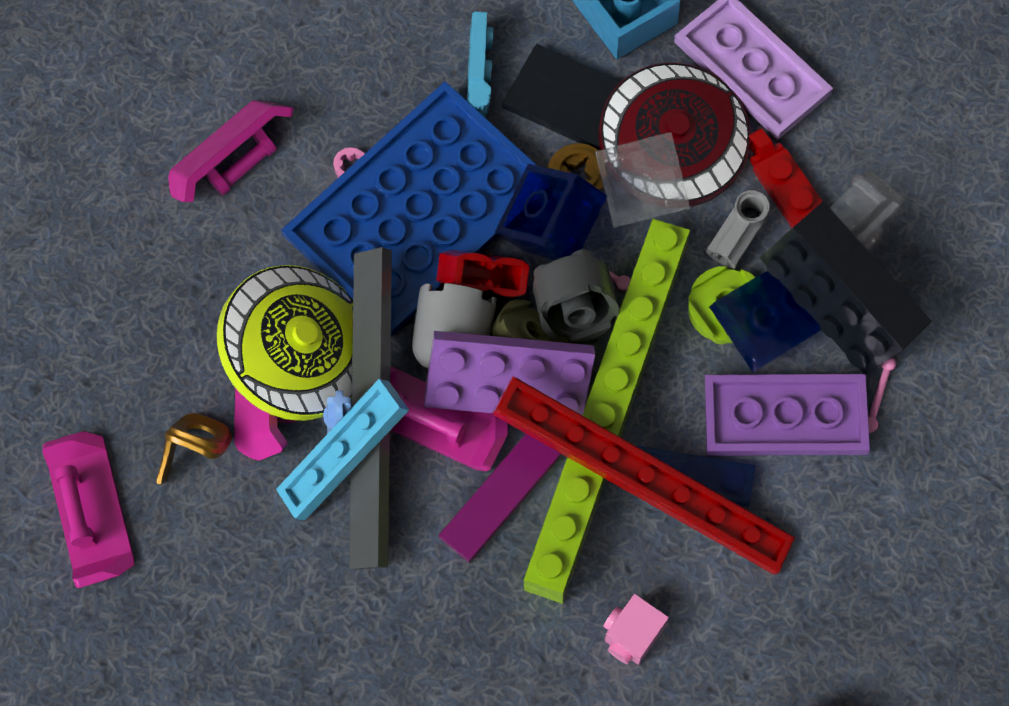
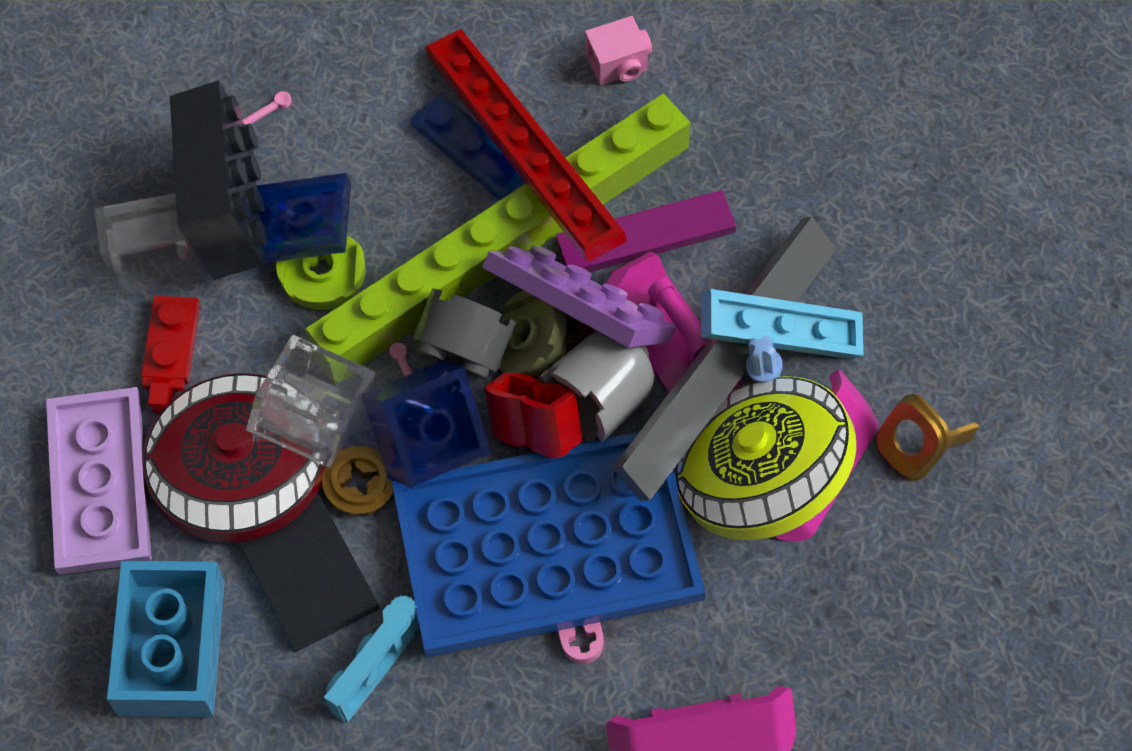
camera: 150 degrees left, 5 degrees down
(89, 507) = (1059, 446): dark pink piece -> none
(739, 231) = (254, 321): light grey piece -> none
(786, 414) = (348, 135): medium lavender plate -> none

